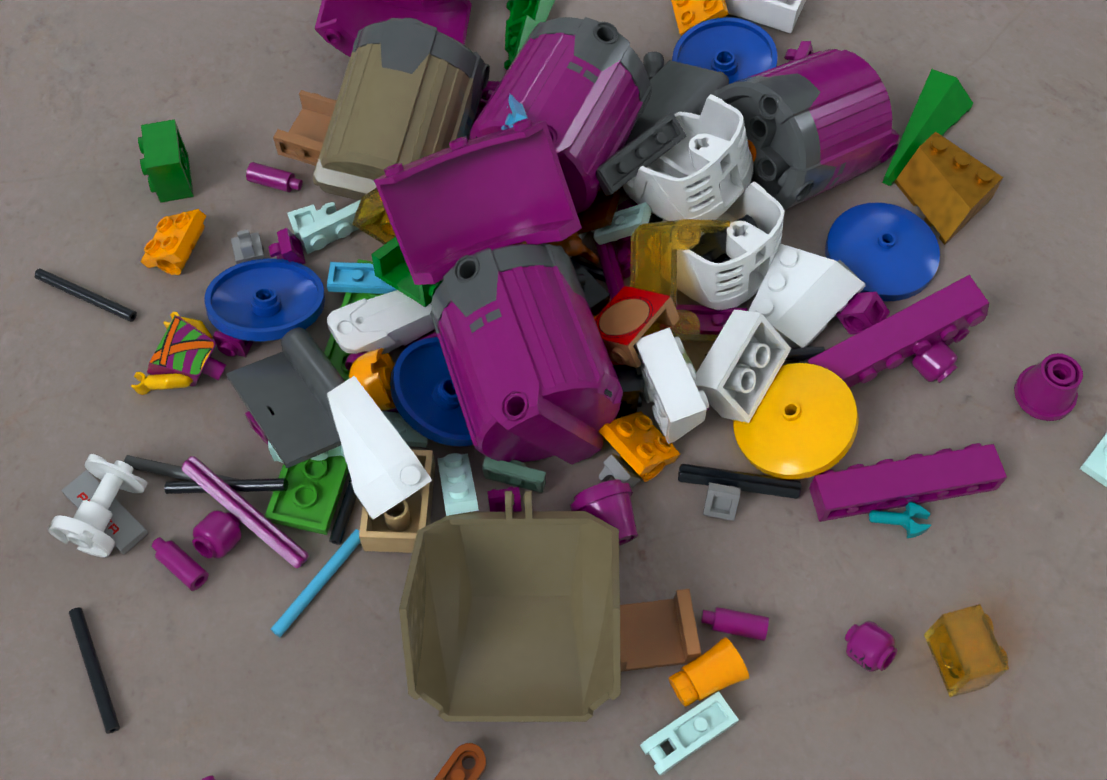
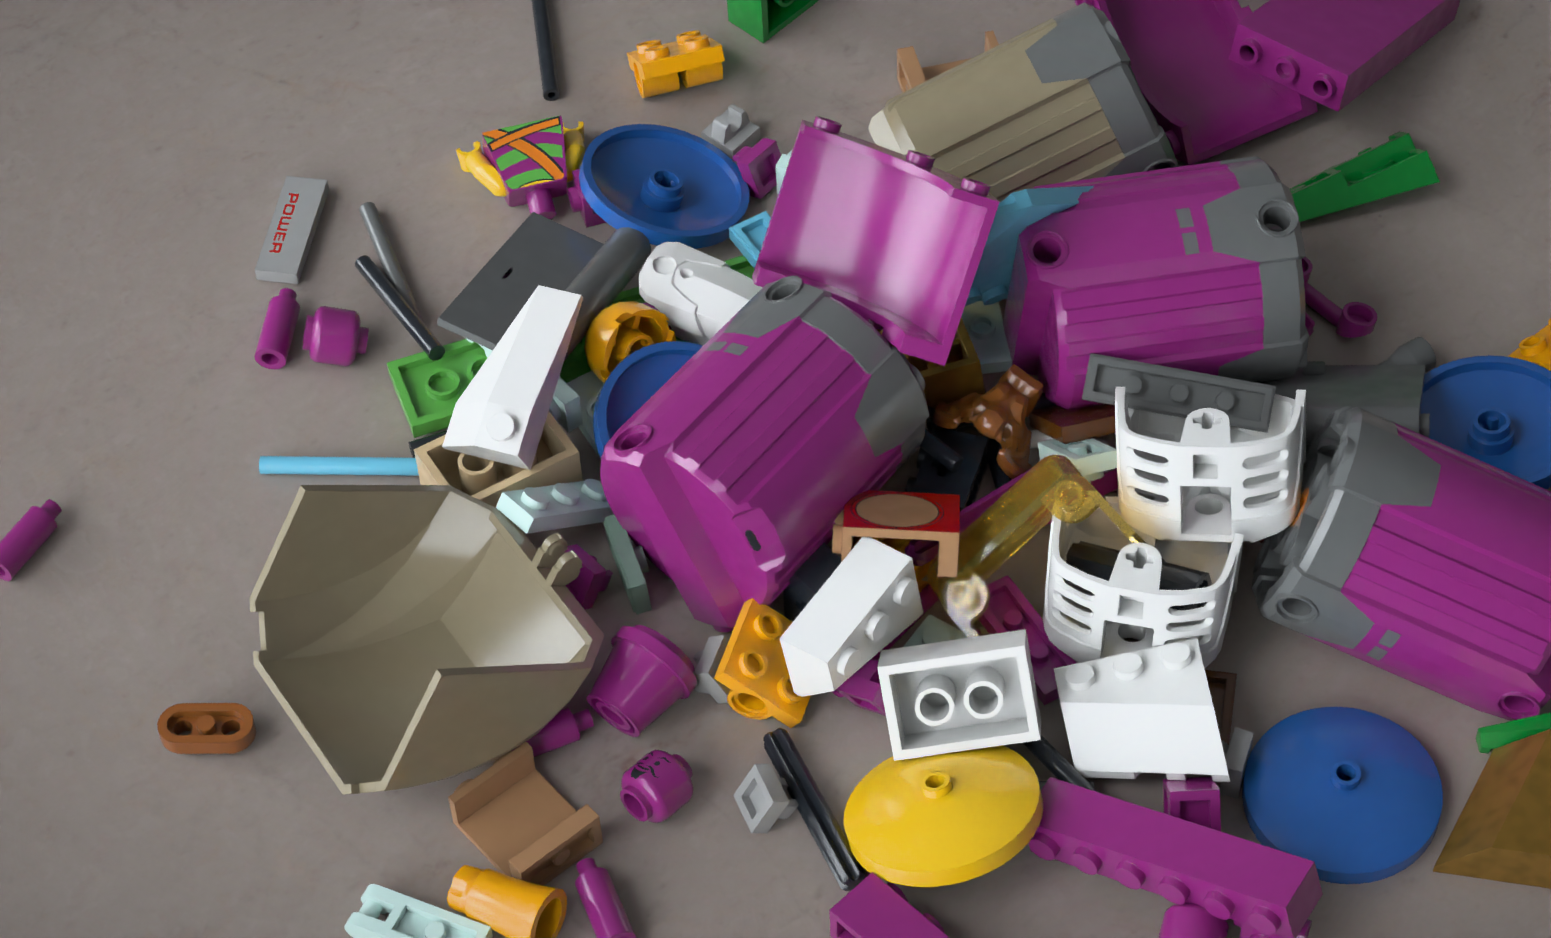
camera: 60 degrees right, 10 degrees down
(93, 516) = (267, 215): white piece -> none
(94, 670) = (108, 339): black piece -> none
(245, 512) = (377, 342): axle -> none
(272, 177) = (850, 91): magenta cylinder -> none
(680, 548) = (656, 786): none -> magenta head

